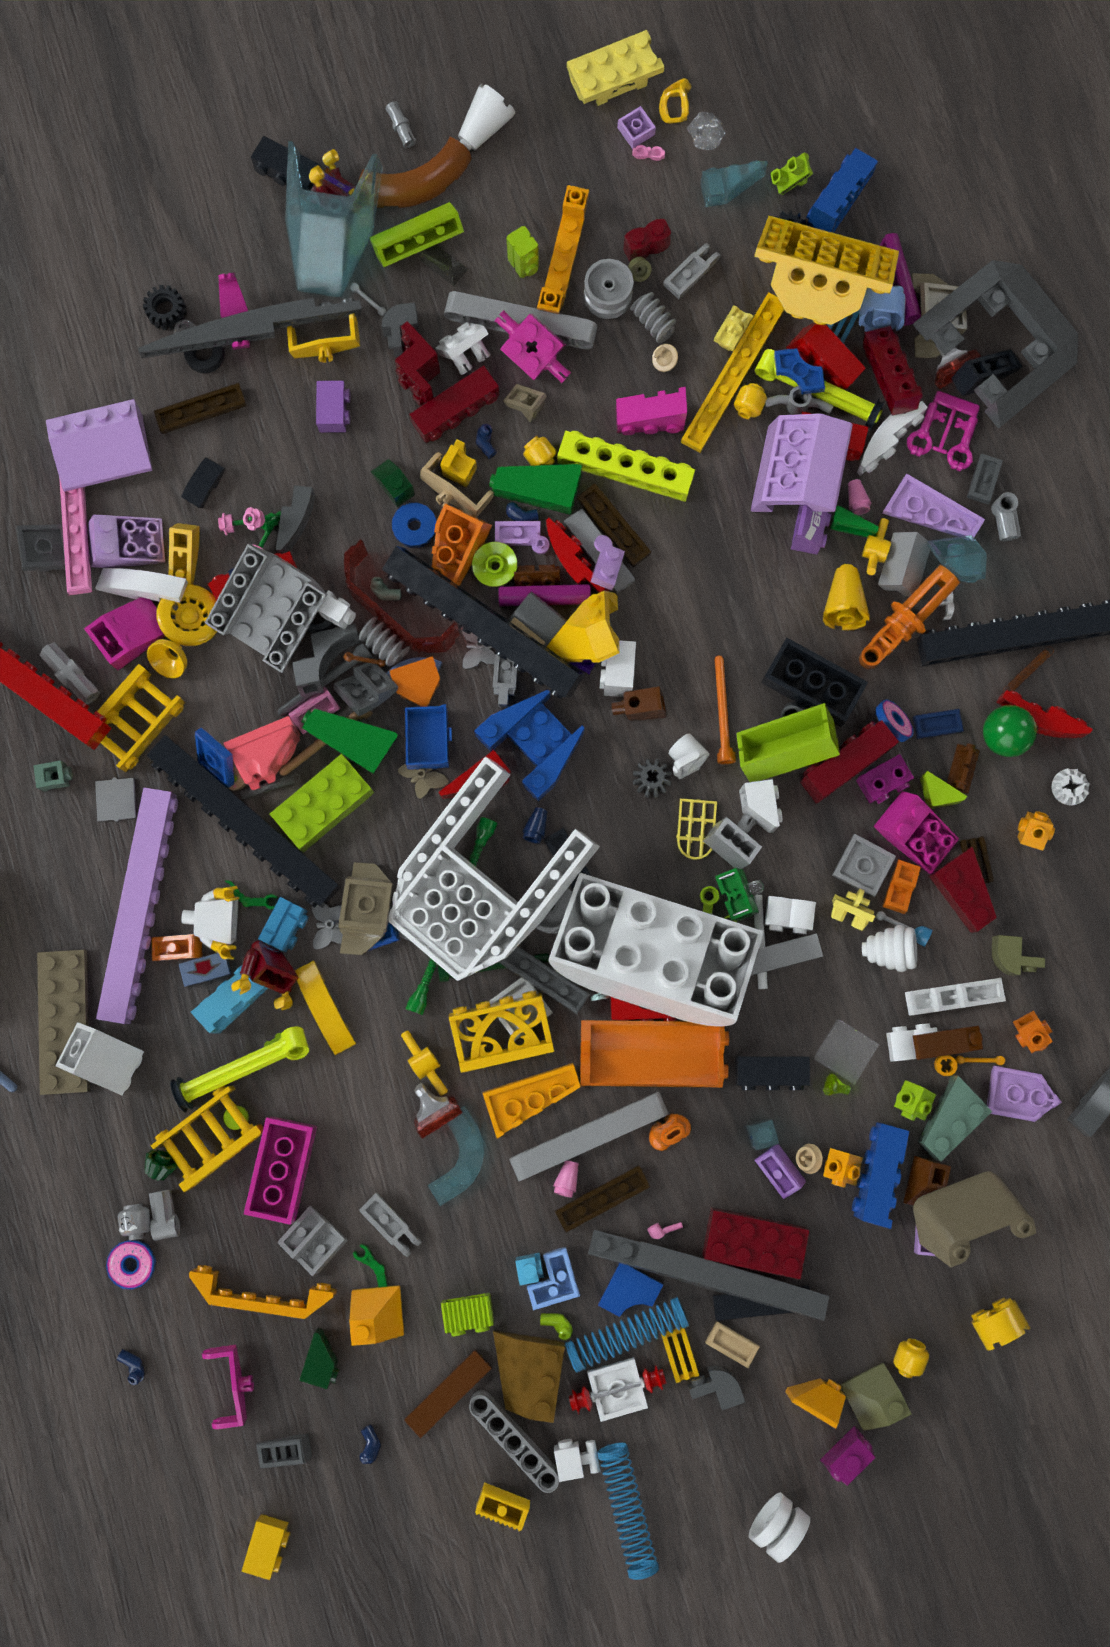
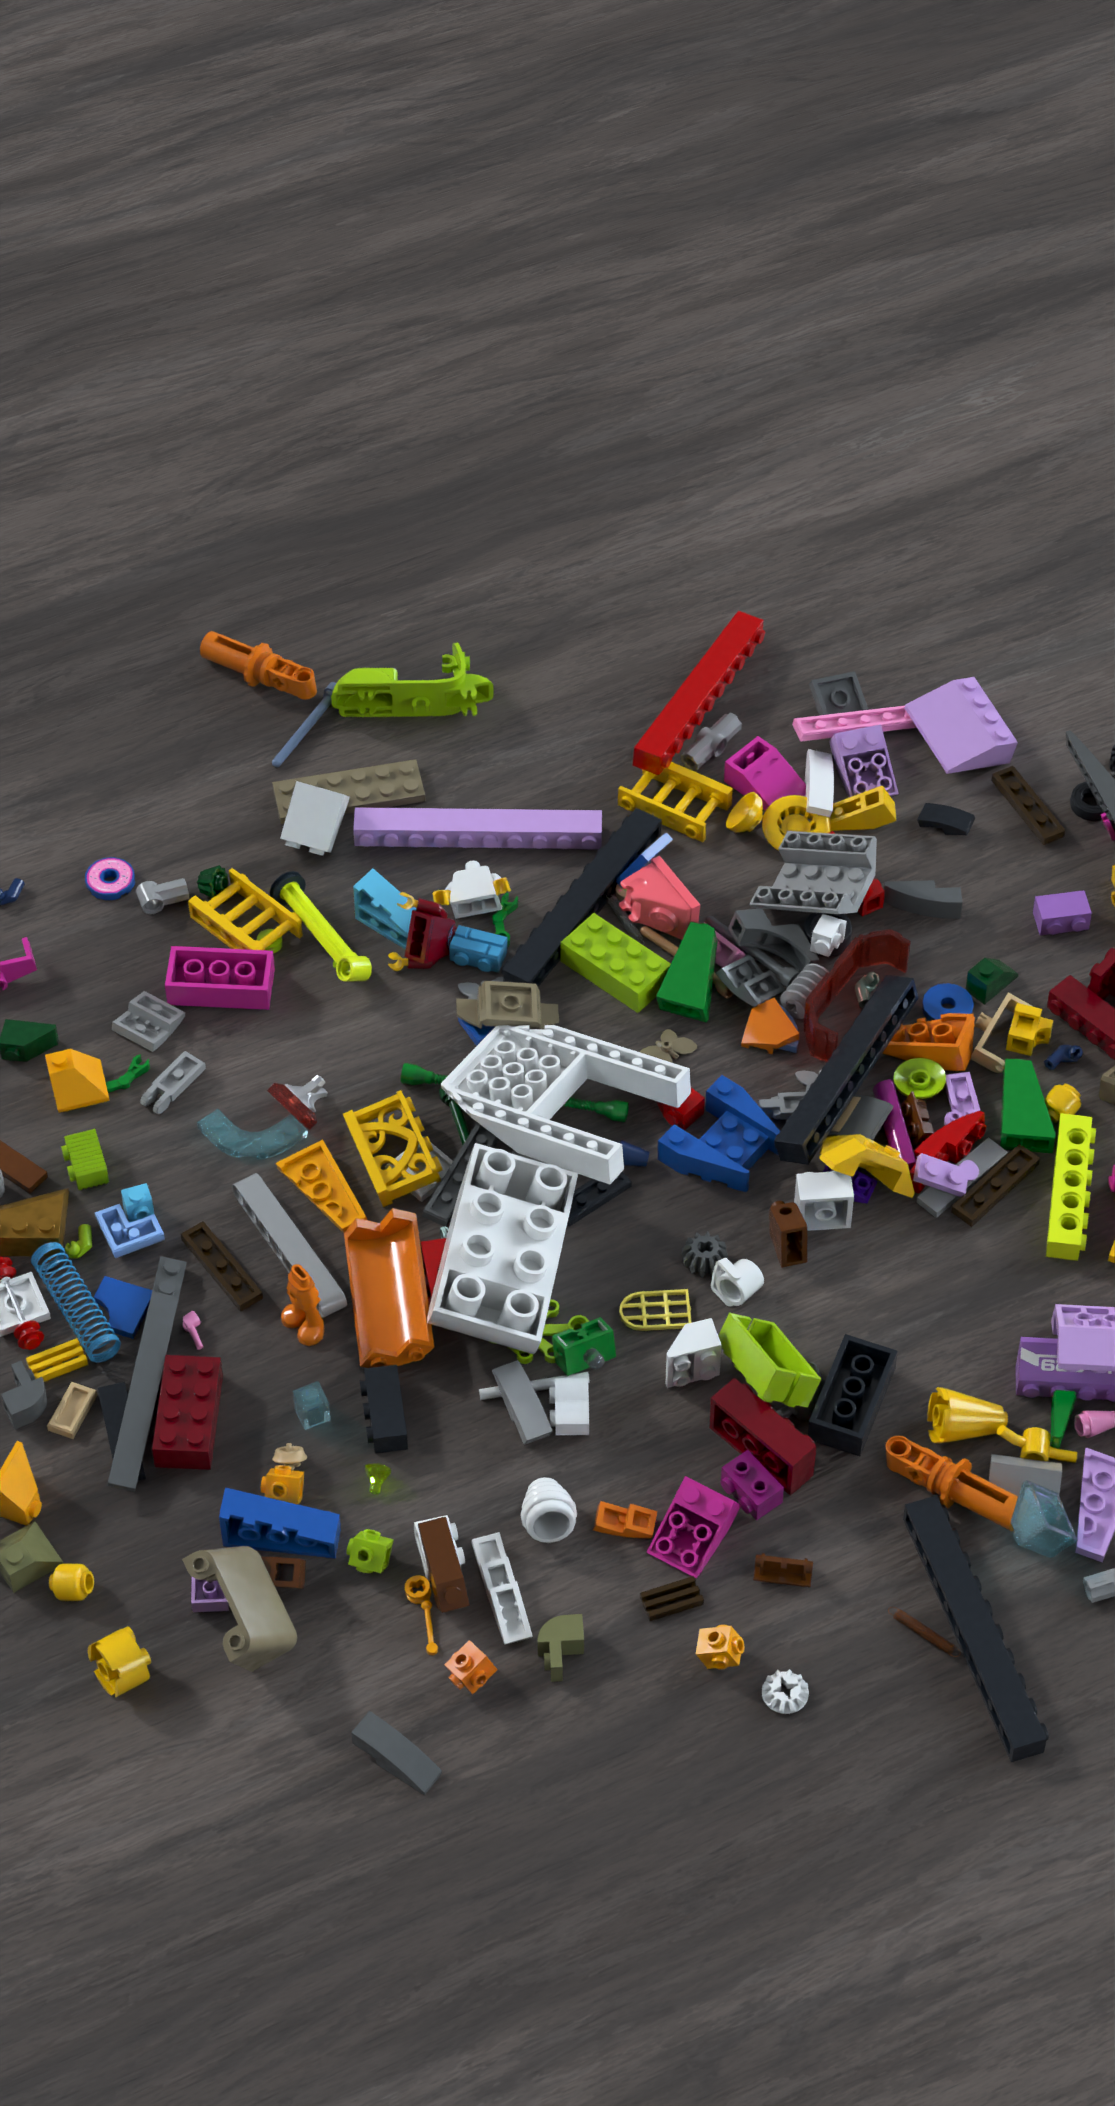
camera: 80 degrees right, 30 degrees down
(45, 774) = (603, 747): sand green brick -> none
(115, 799) = (587, 797): light grey piece -> none
(134, 1221) = (154, 869): light grey head -> none
(176, 947) = (439, 868): orange slope -> none
(204, 969) = (417, 886): sand blue tile -> none
(206, 1281) = (93, 939): light orange slope -> none
(253, 519) = (910, 852): plant -> none
(323, 1008) = (392, 994): yellow slope -> none
(349, 657) = (779, 955): dark orange hinge -> none
(424, 1063) = (348, 1087): yellow piece -> none
(427, 737) = (708, 1044): blue container -> none
(517, 514) = (984, 1095): dark blue arm -> none
(567, 1179) = (238, 1230): bright pink cone -> none
(726, 753) = (812, 1315): orange piece -> none
(733, 841) = (644, 1335): light grey brick -> none
(780, 1171) = (272, 1434): medium lavender slope -> none
(843, 905) = (592, 1469): light yellow hips -> none
(846, 1051) = (419, 1485): clear tile -> none
(864, 865) = (643, 1476): light grey plate -> none
(895, 720) = (837, 1481): tile -> none
(922, 933) = (570, 1545): dark azure hinge -> none
(938, 724) = (834, 1540): dark blue tile -> none
(939, 793) = (745, 1542): lime slope -> none
(949, 607) = (984, 1535): white piece -> none
(953, 1119) = (354, 1595): sand green wedge -> none
(965, 890) = (632, 1579): dark red wedge -> none
(1009, 731) = (836, 1599): green piece -> none
(1019, 1094) = (393, 1671): lavender tile -> none
(1052, 721) = (864, 1648): red slope -> none

